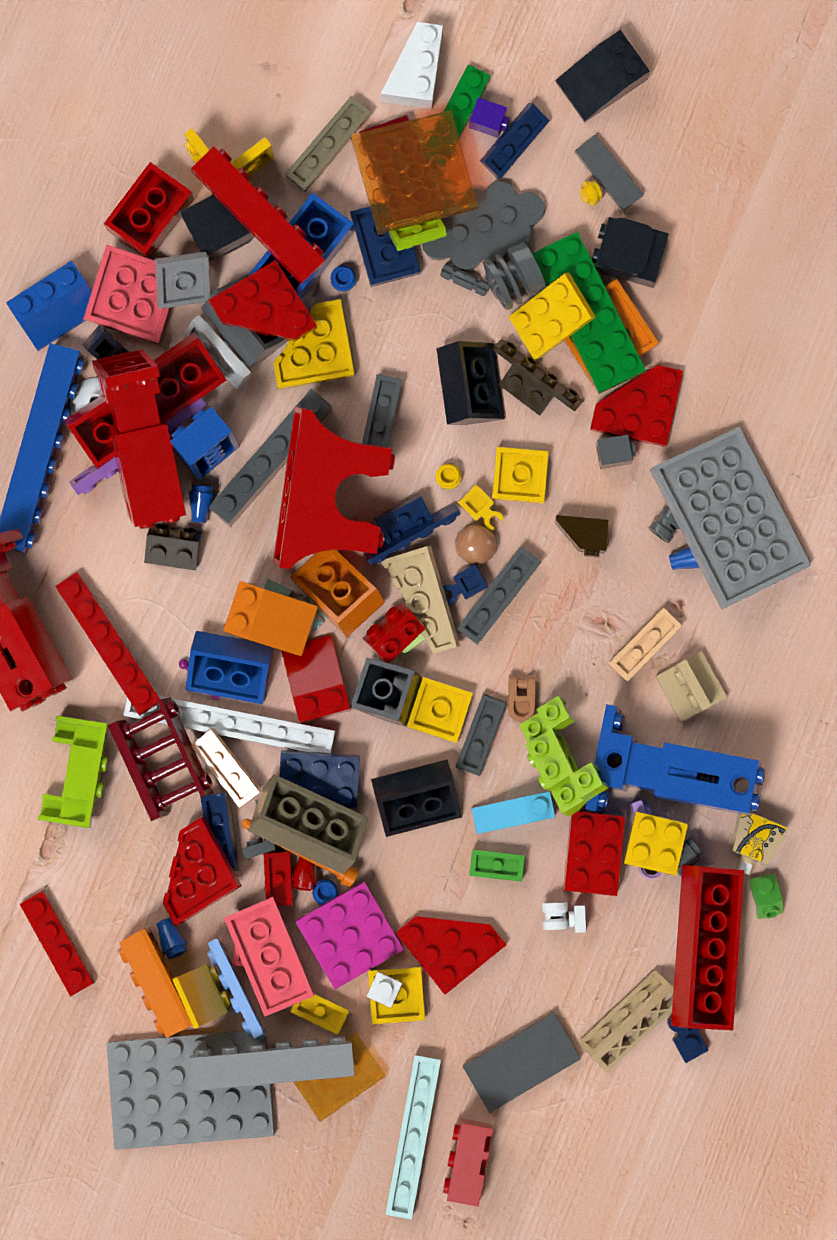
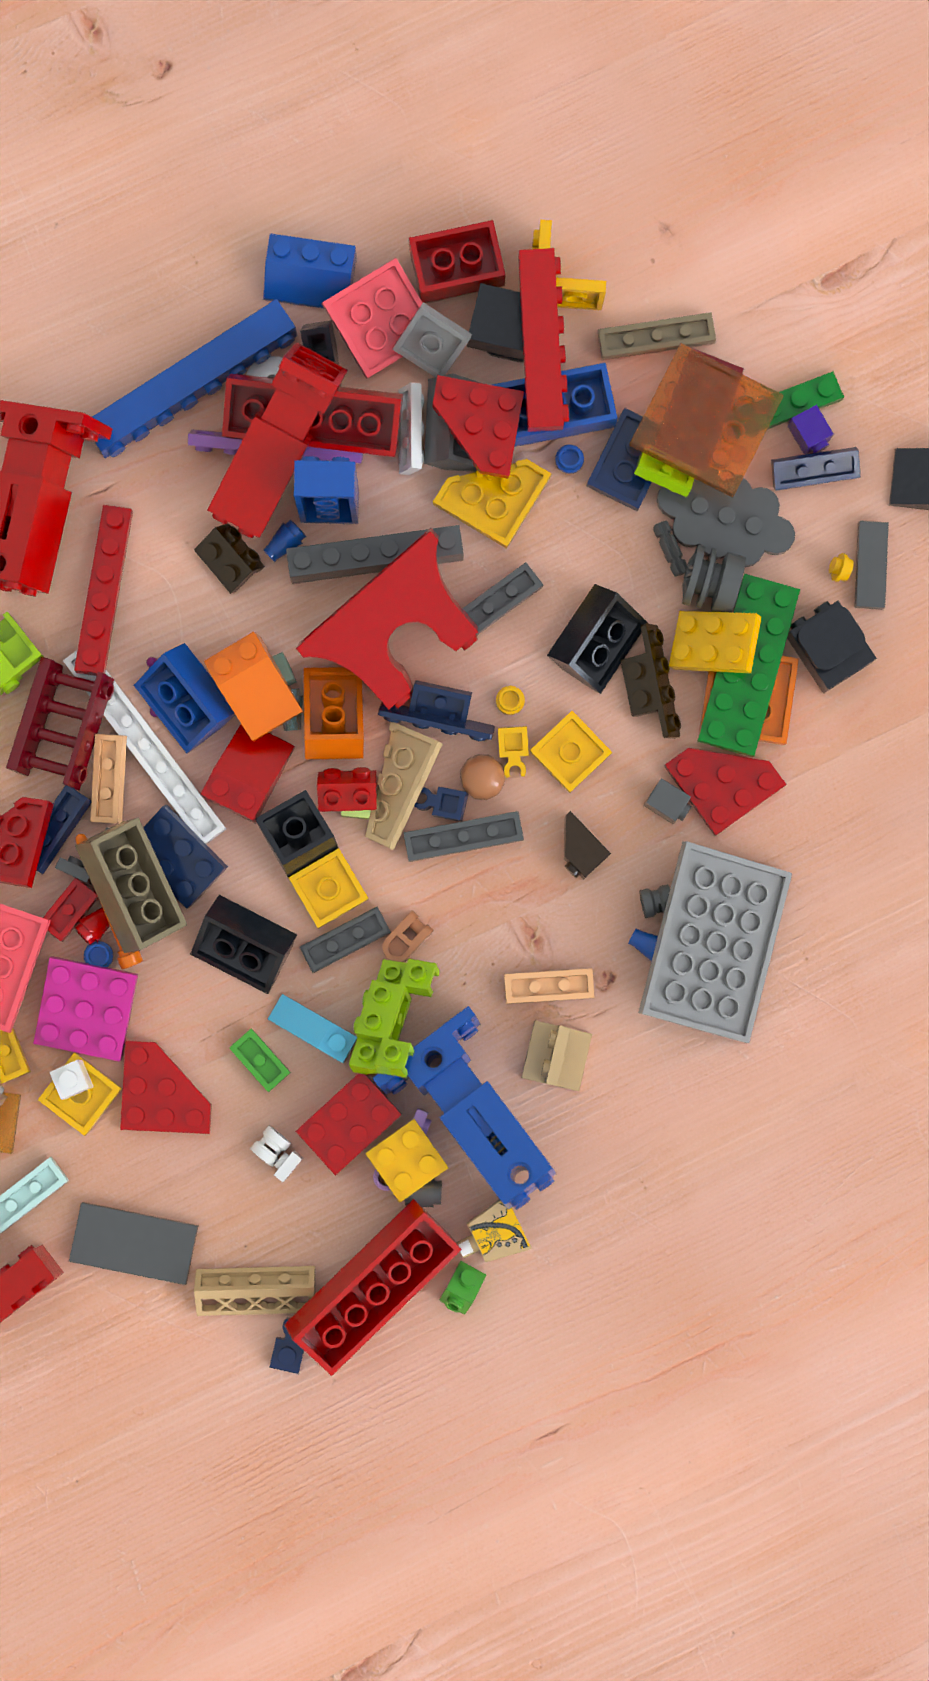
camera: 35 degrees right, 0 degrees up
(415, 72) = (786, 337): white wedge -> none

